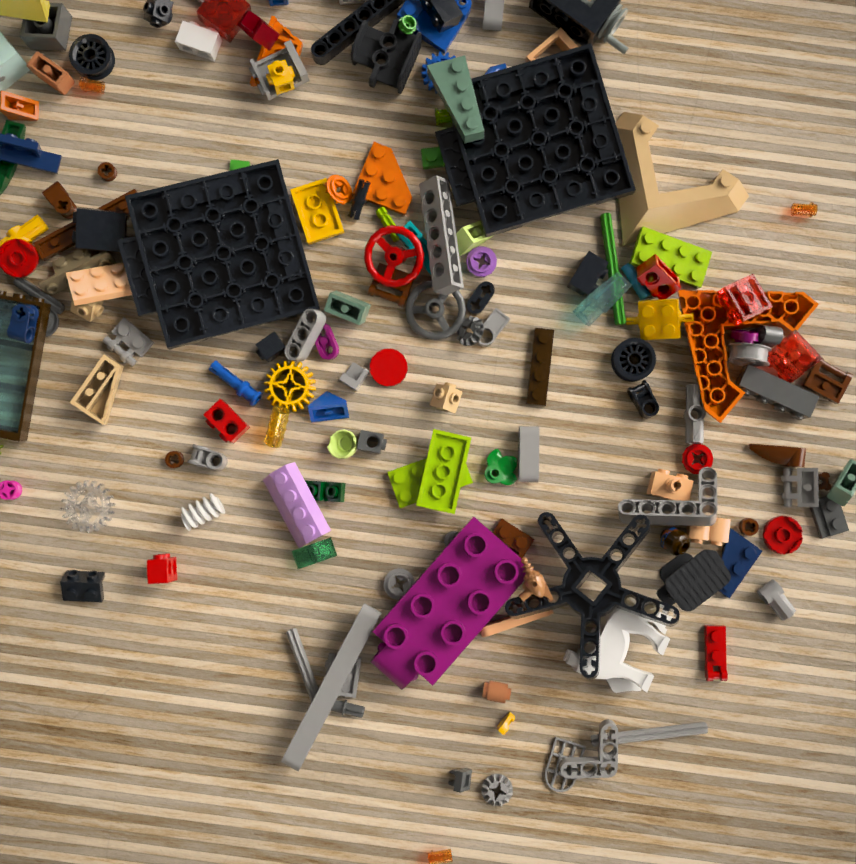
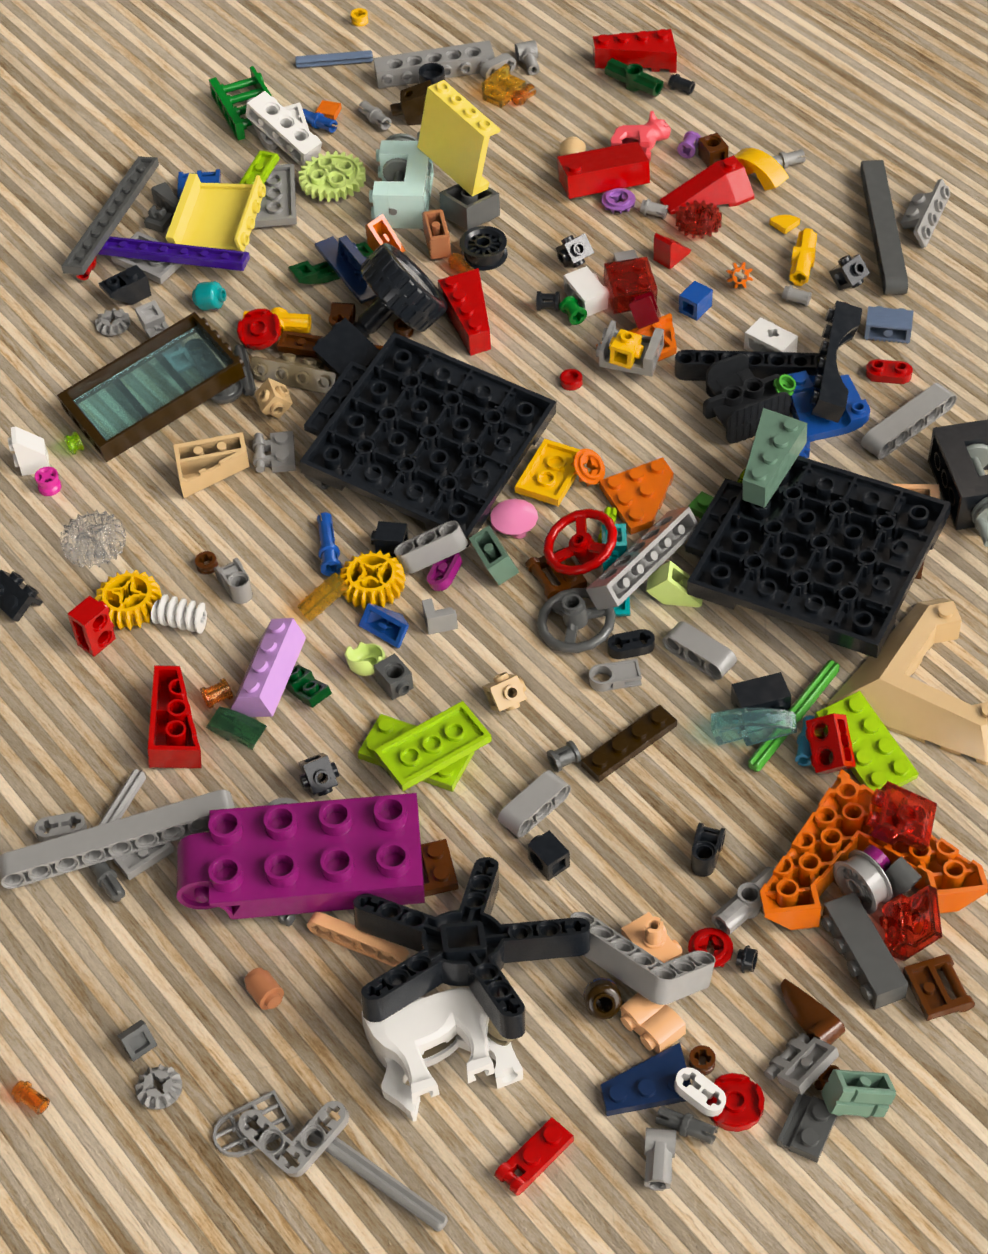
camera: 50 degrees right, 35 degrees down
(23, 325) = (205, 361): dark blue piece -> none
(87, 151) = (400, 291): none -> black wheel
(98, 284) = (296, 385): light nougat plate -> none
(133, 120) = (467, 309): none -> red wedge
(163, 535) = (129, 598): none -> yellow gear
(181, 69) = (541, 297): none -> black bush
(205, 64) = (575, 313): none -> green bush
(229, 417) = (284, 565): red brick -> none
(257, 123) = (571, 379): none -> red tile
(279, 588) = (171, 728): none -> red wedge
(280, 542) = (216, 693): none -> clear orange bush
(287, 704) = (59, 825): none -> light grey beam
(326, 264) = (514, 517): none -> bright pink dish
(359, 199) = (599, 485): black pin -> none
(388, 367) = (479, 635): red tile -> none
(396, 544) = (312, 768): none -> black brick
(476, 254) = (667, 608): medium lavender gear -> none
(476, 326) = (590, 658): dark grey gear -> none
(503, 466) = (495, 796): green plate -> none
(503, 726) = (239, 1027): yellow tile -> none
(515, 409) = (564, 756): none -> dark grey bush
(524, 270) = (699, 650): none -> light grey beam
(533, 583) = (408, 890): medium nougat piece -> none
(566, 479) = (548, 855): none -> black brick
(637, 343) = (730, 791): black wheel -> none
(659, 319) = (796, 783): yellow plate -> none
(692, 579) = (579, 1027): black piece -> none
(721, 449) = (747, 959): none -> black plate
(769, 554) = (700, 1092): none -> white beam
(773, 570) = (686, 1125): none -> dark grey pin

